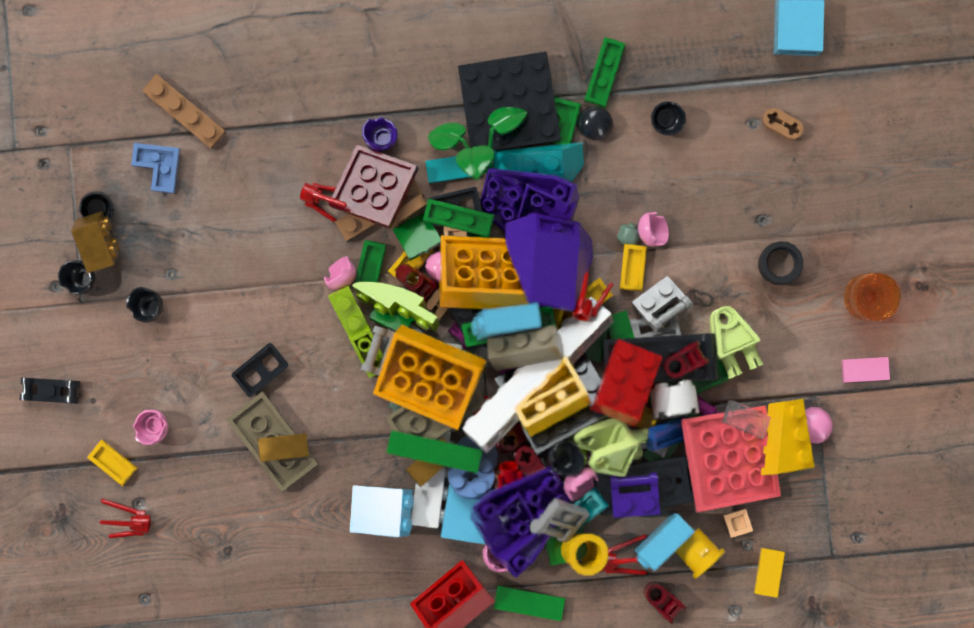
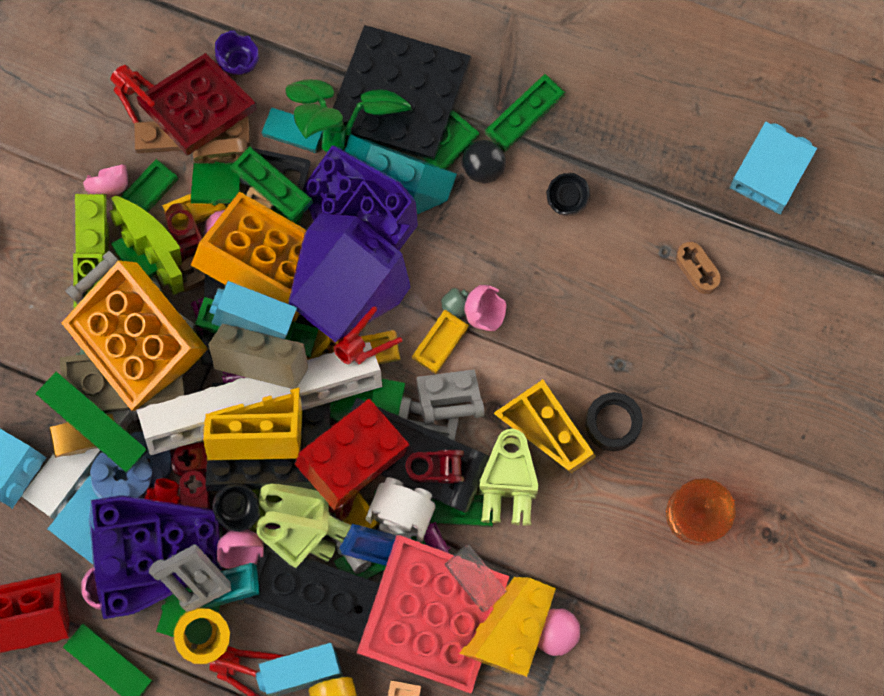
camera: 30 degrees right, 10 degrees down
(636, 502) = (291, 606): dark purple plate -> none
(738, 290) = (547, 426): none -> yellow wedge
(865, 369) = (651, 597): bright pink tile -> none

